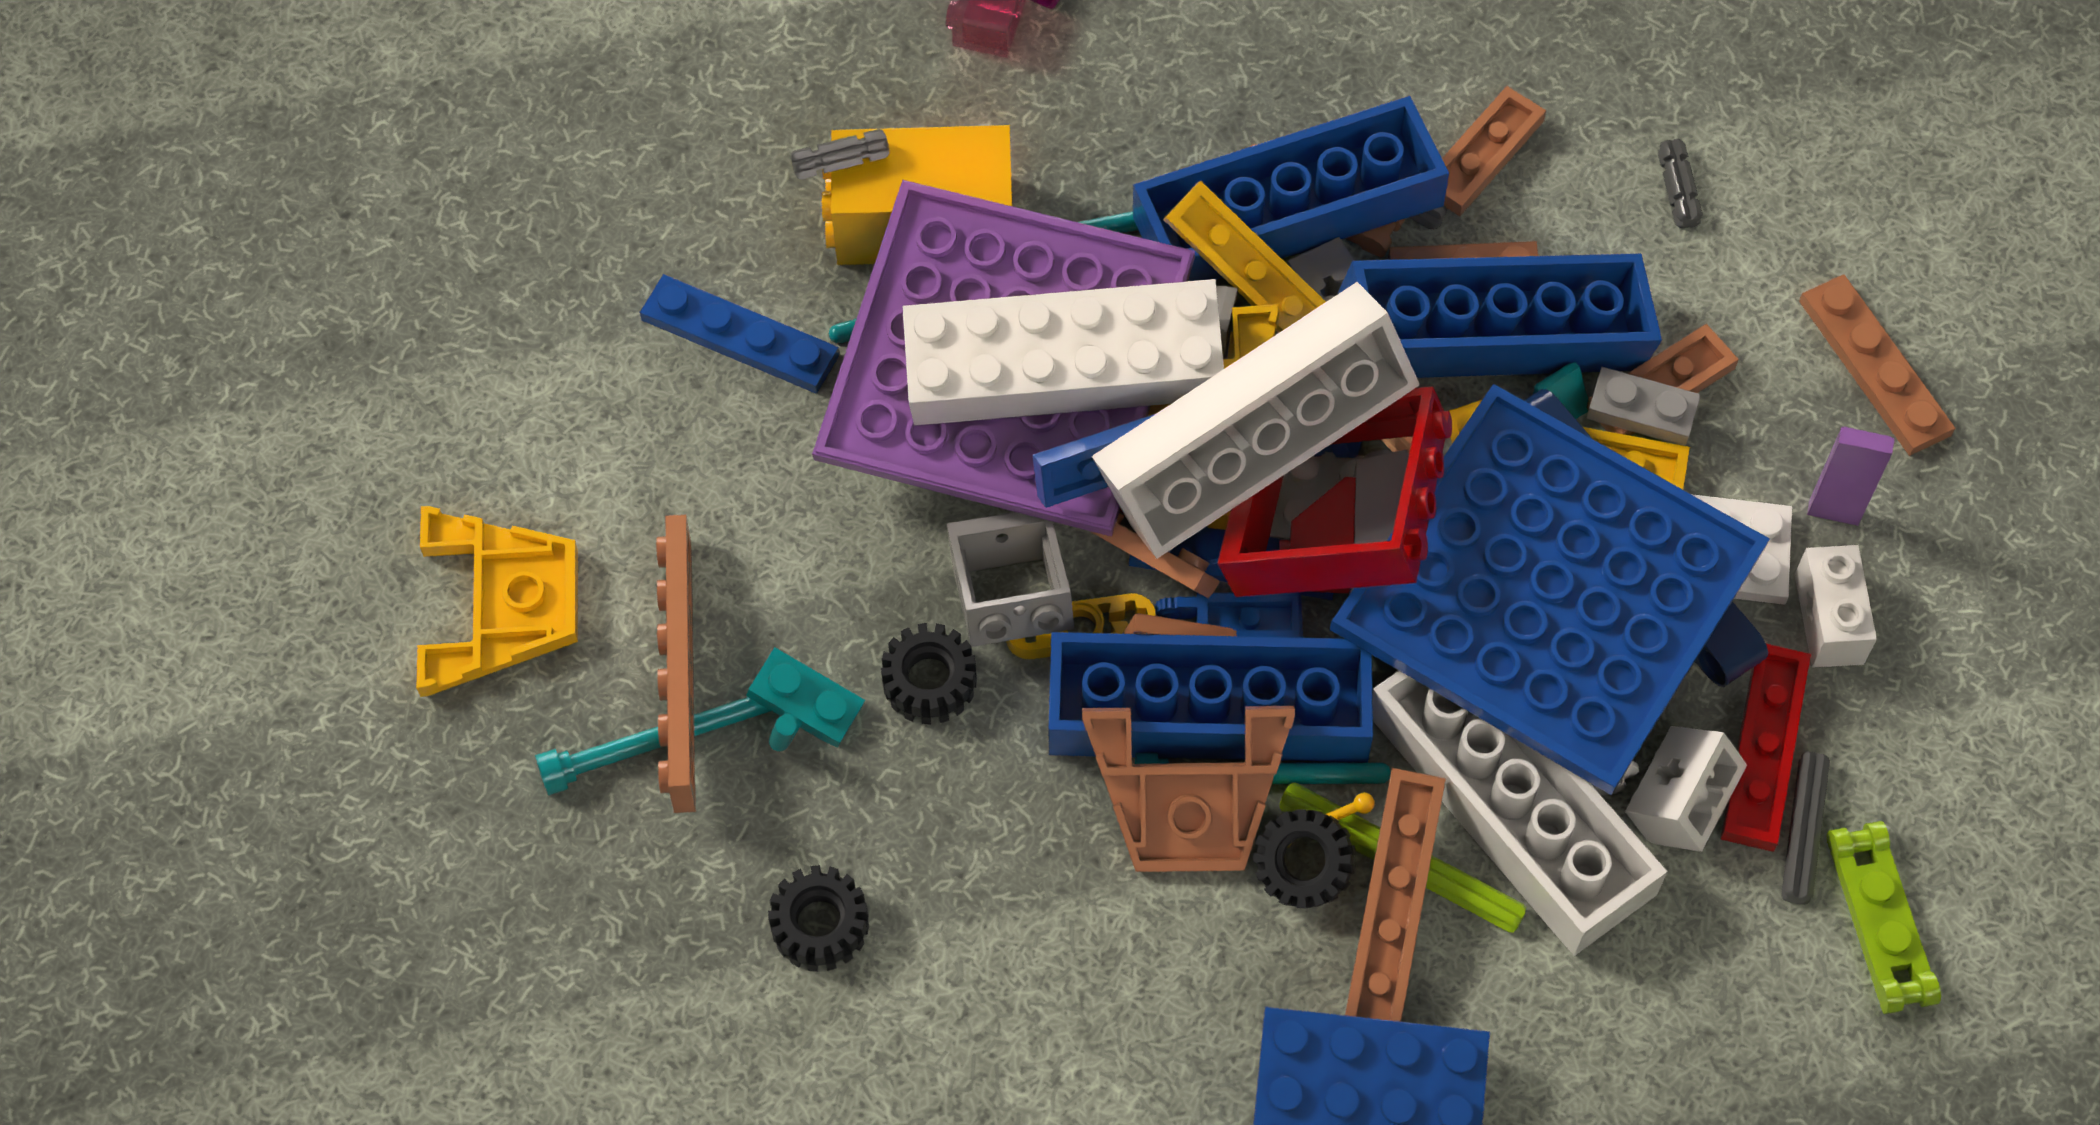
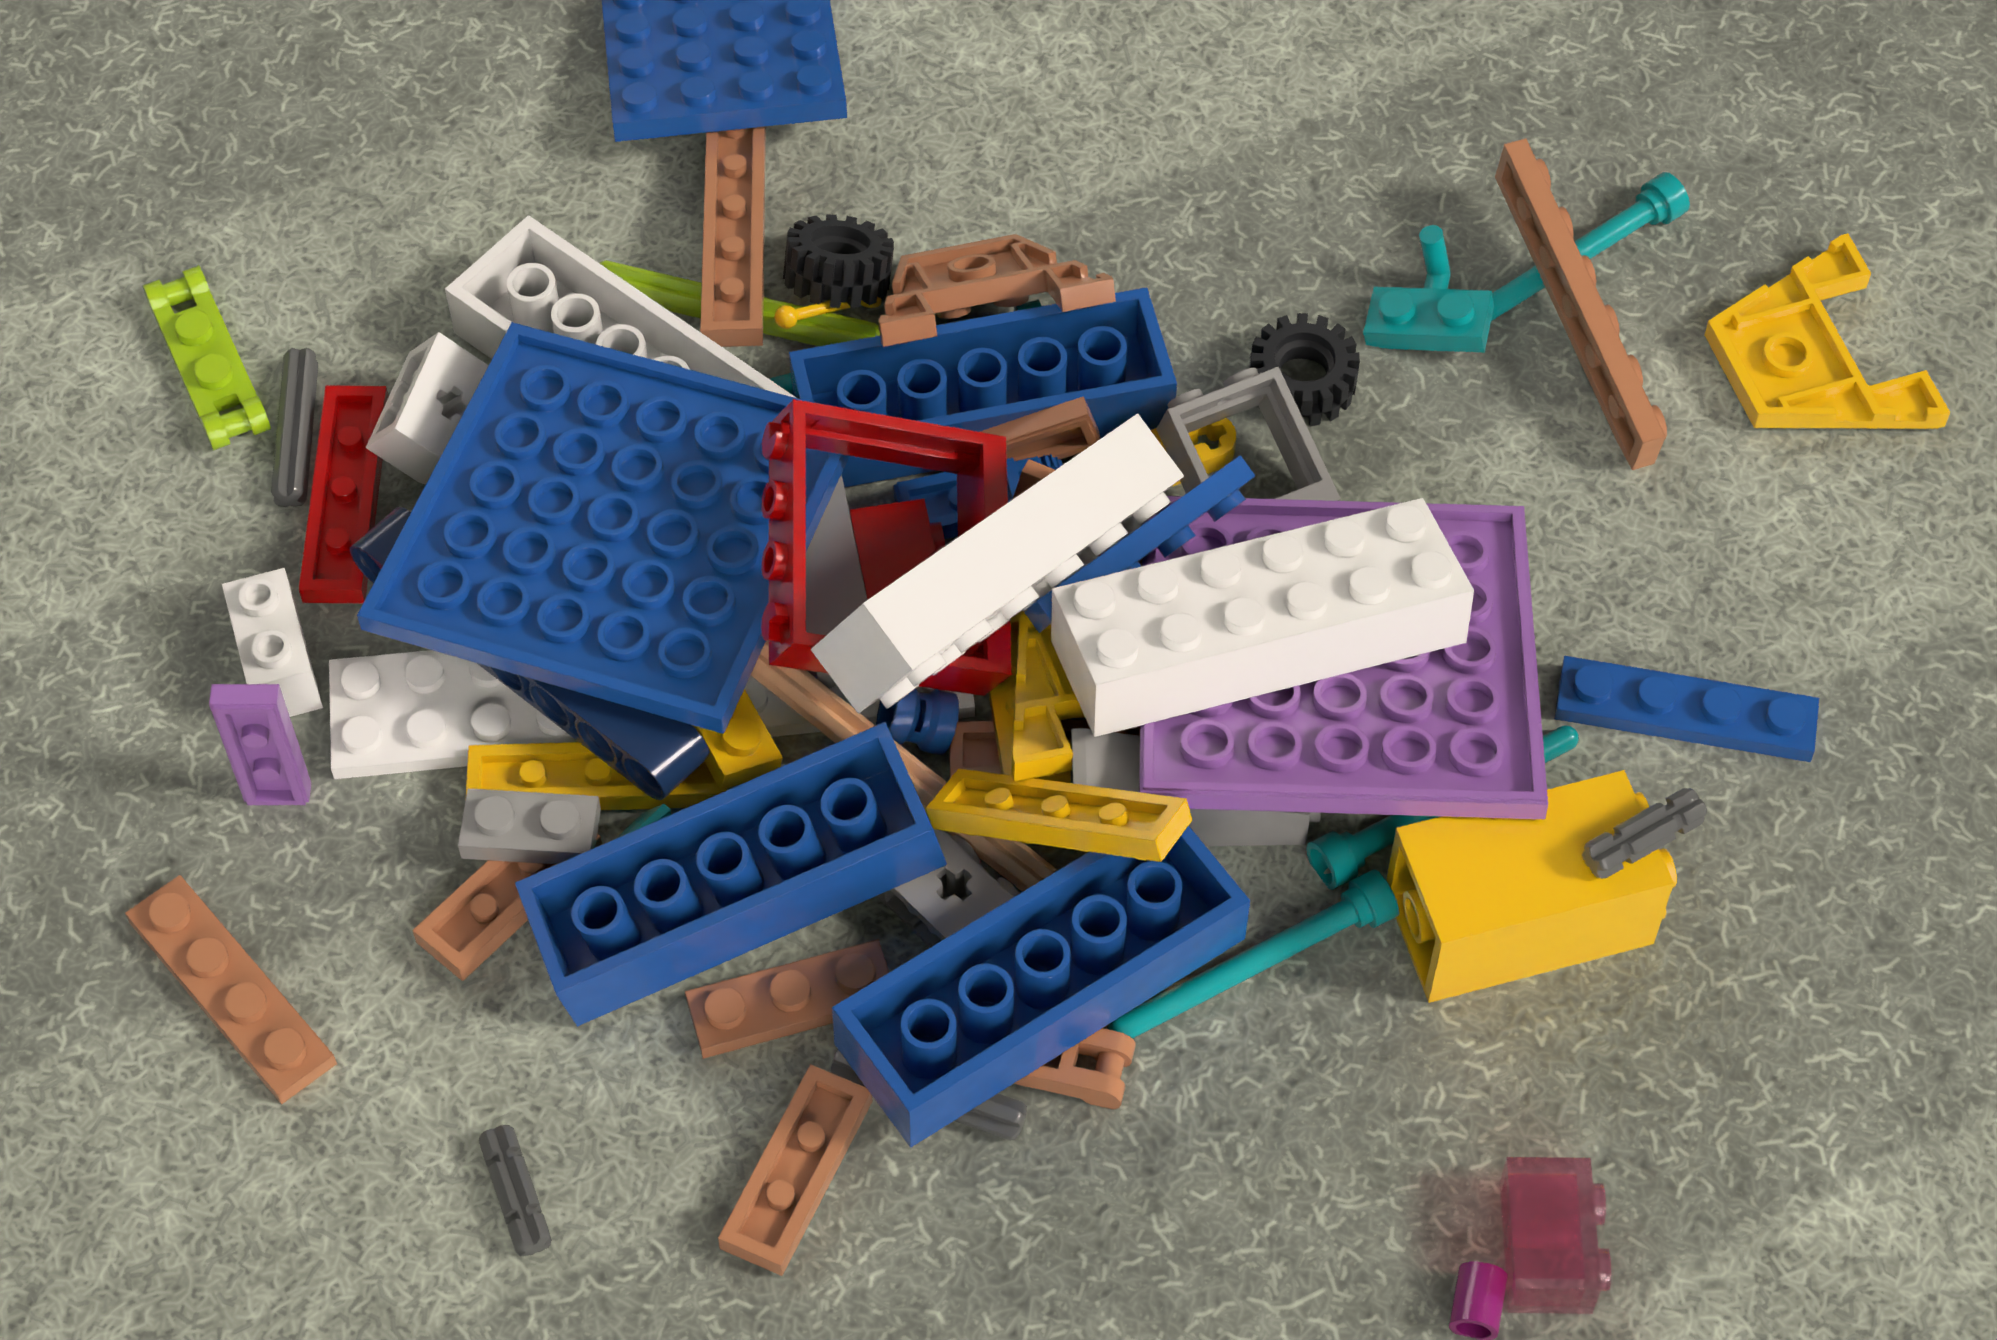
camera: 165 degrees right, 5 degrees down
(818, 888) = (1332, 100): black tyre -> none

